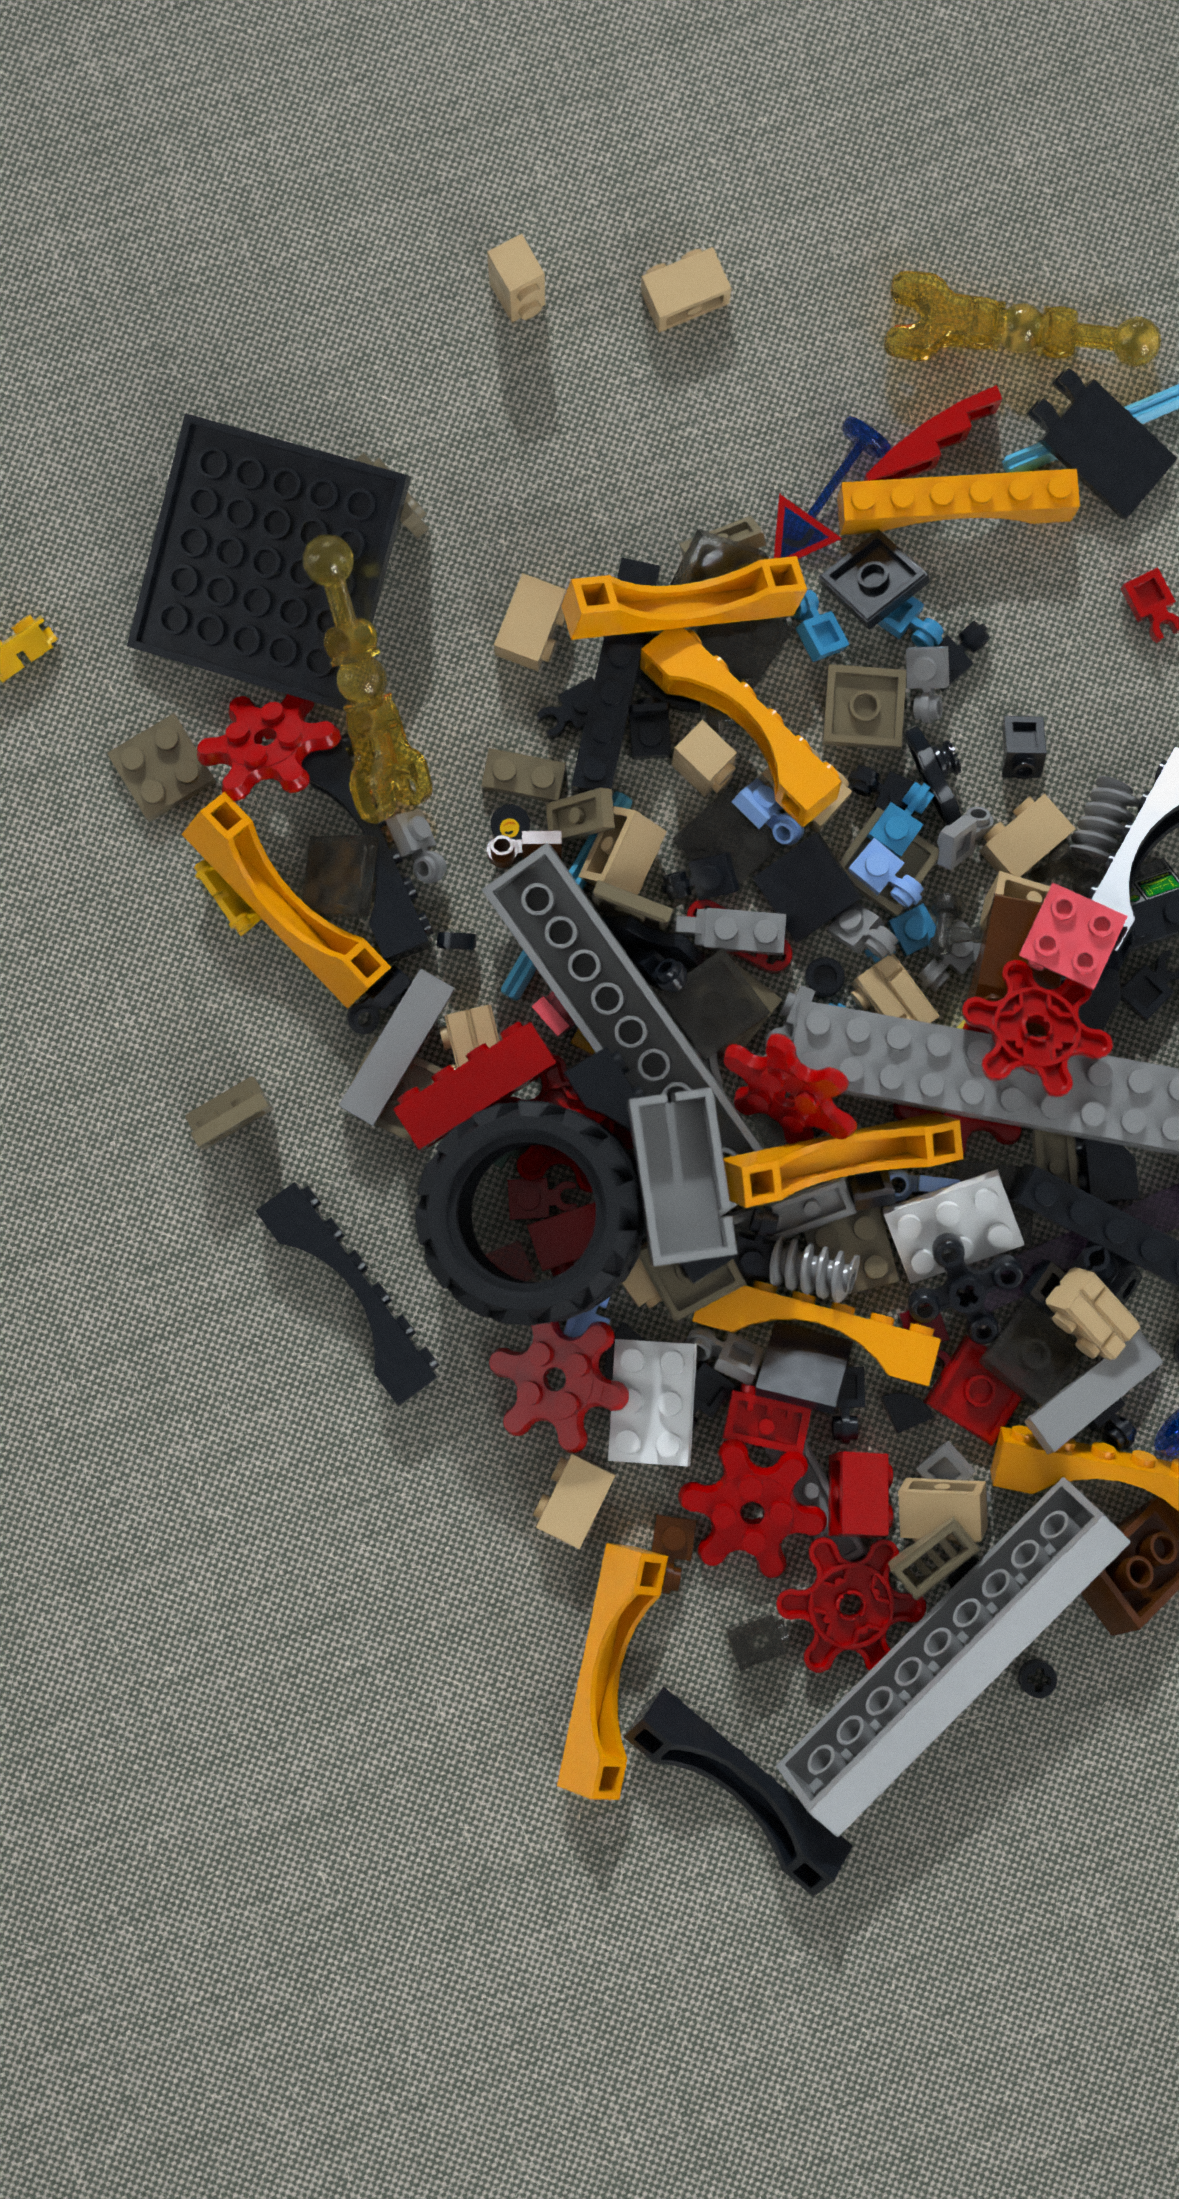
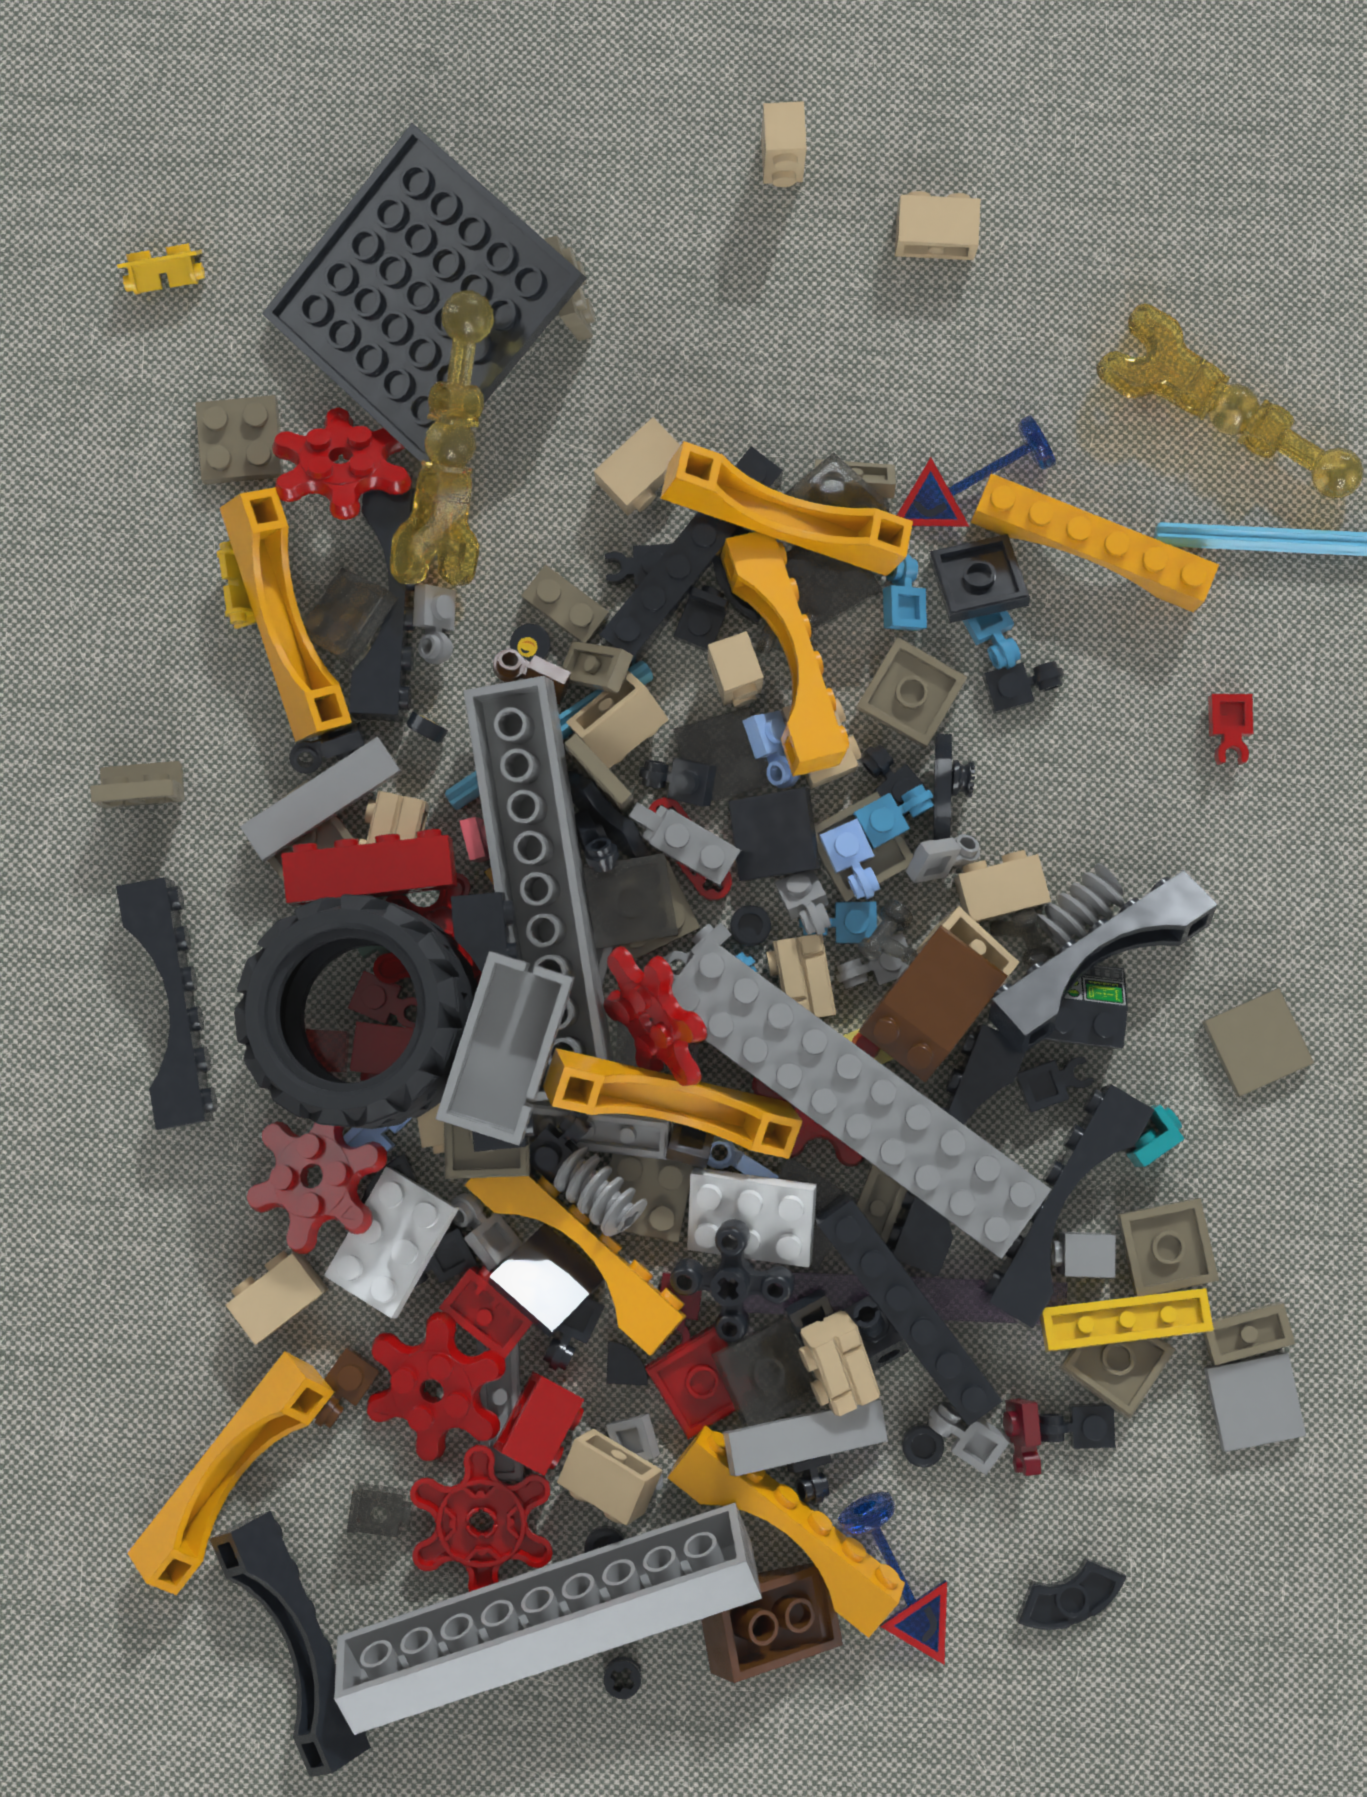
camera: 35 degrees right, 0 degrees up
(912, 1554) = (549, 1537): dark tan slope -> none
(922, 447) = (1082, 477): red slope -> none
(927, 670) = (987, 687): light grey plate -> none
(1023, 746) = (1042, 801): black bracket -> none
(1052, 1009) = (937, 1060): red plate -> none
(1072, 936) = (990, 1001): coral hinge -> none
(1103, 442) = (1257, 553): black tile -> none

